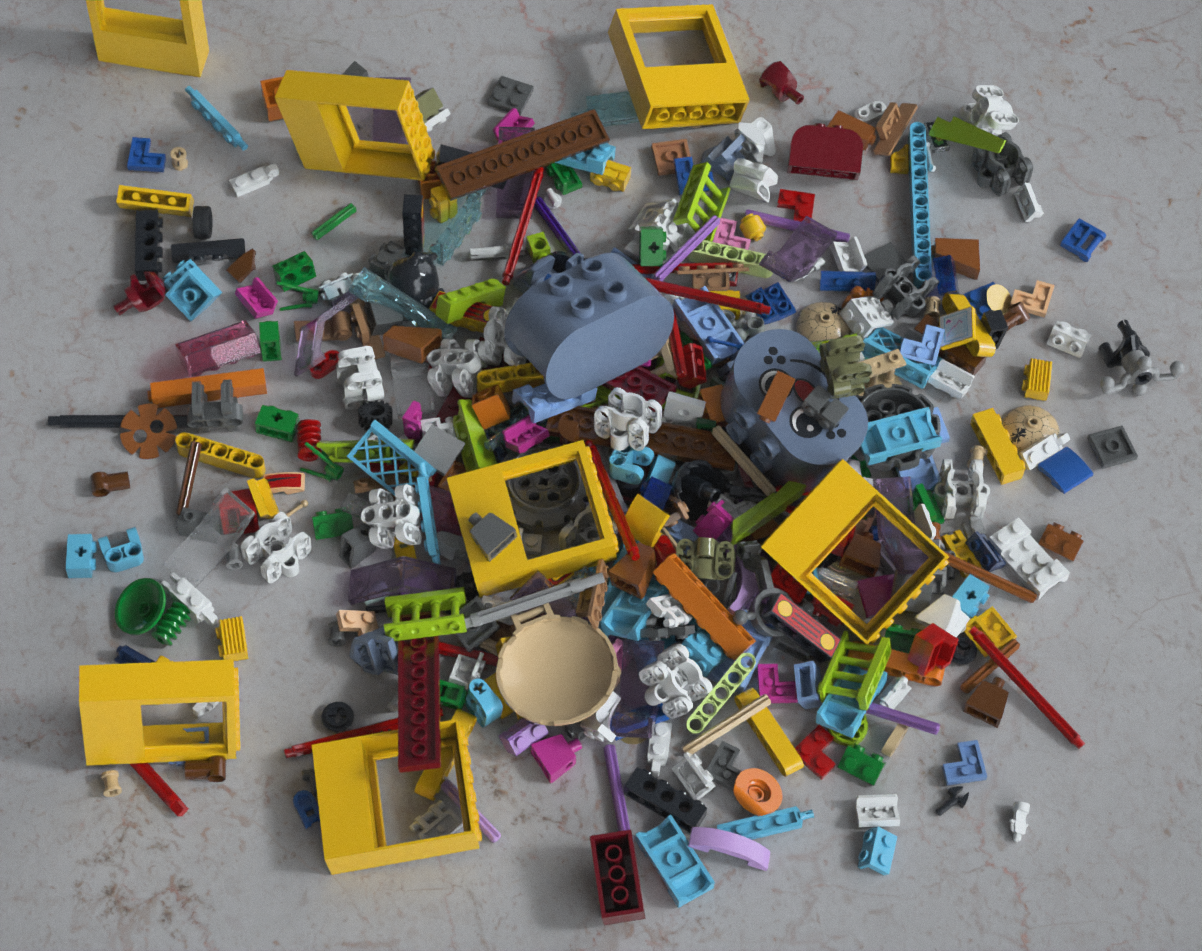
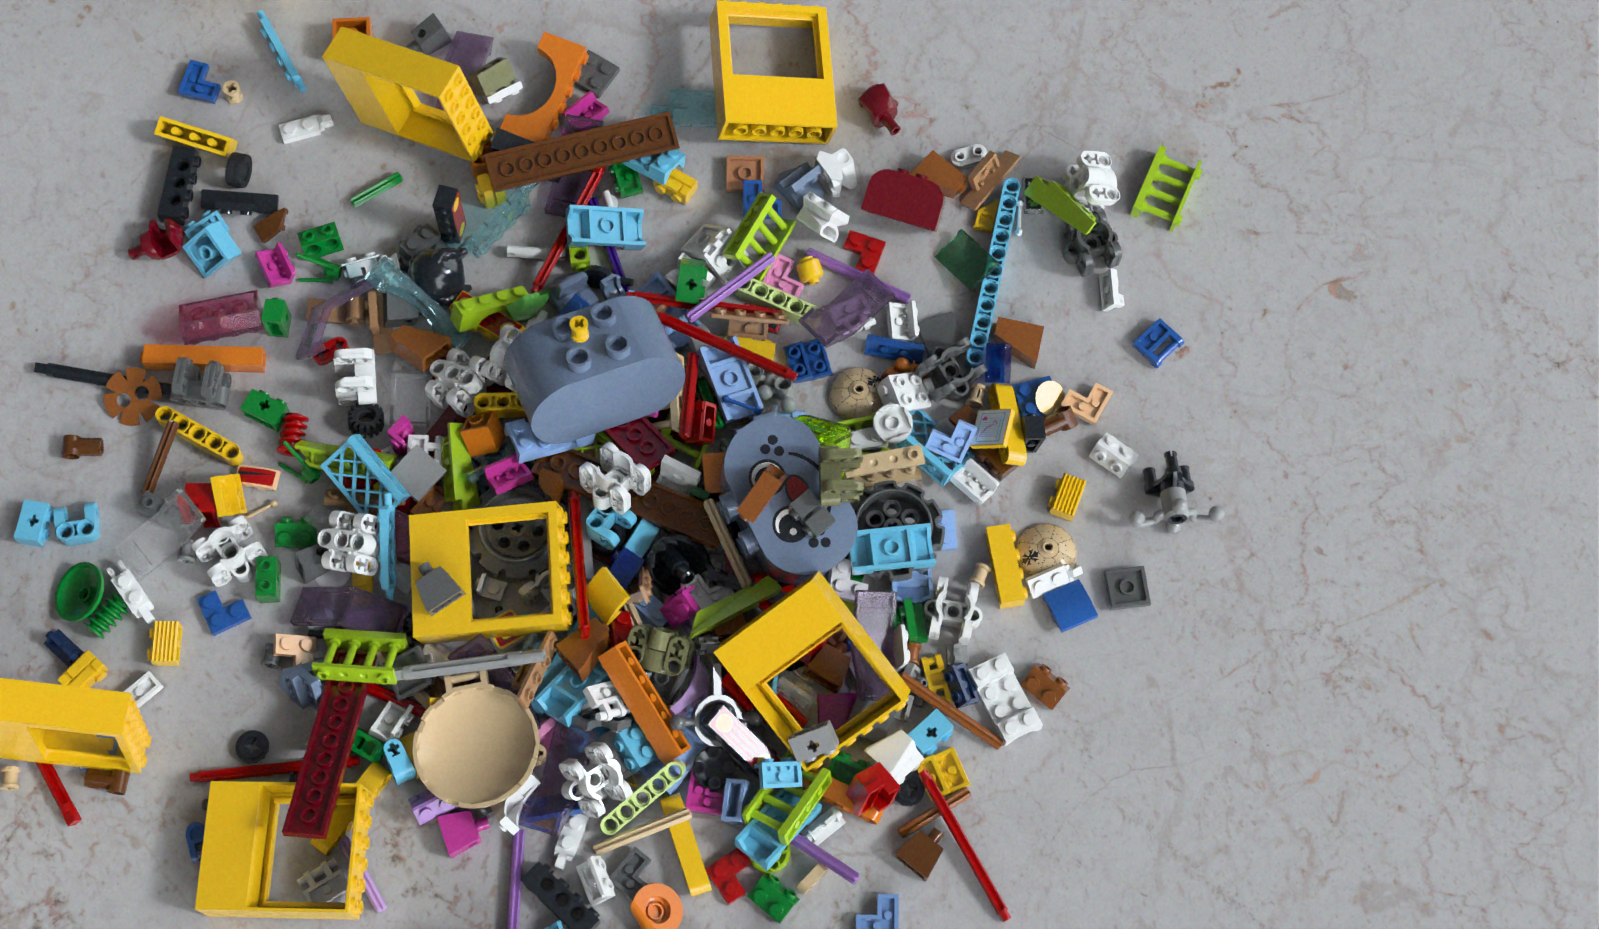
camera: 10 degrees right, 10 degrees up
(278, 610) = (219, 617): none -> blue plate
(317, 567) = (268, 579): none -> green brick
(485, 85) = (567, 60): none -> orange arch
(505, 292) = (528, 305): none -> bright green slope
(556, 216) = (604, 226): none -> medium azure piece
(578, 279) = (579, 326): none -> yellow bush
(778, 658) = (713, 767): none -> black dish
(844, 647) = (779, 774): none -> medium azure bracket
(872, 336) = (892, 423): none -> white tile
(875, 601) = (821, 733): none -> light grey brick
(893, 196) = (966, 260): none -> clear green piece
(1041, 102) = (1155, 174): none -> lime fence

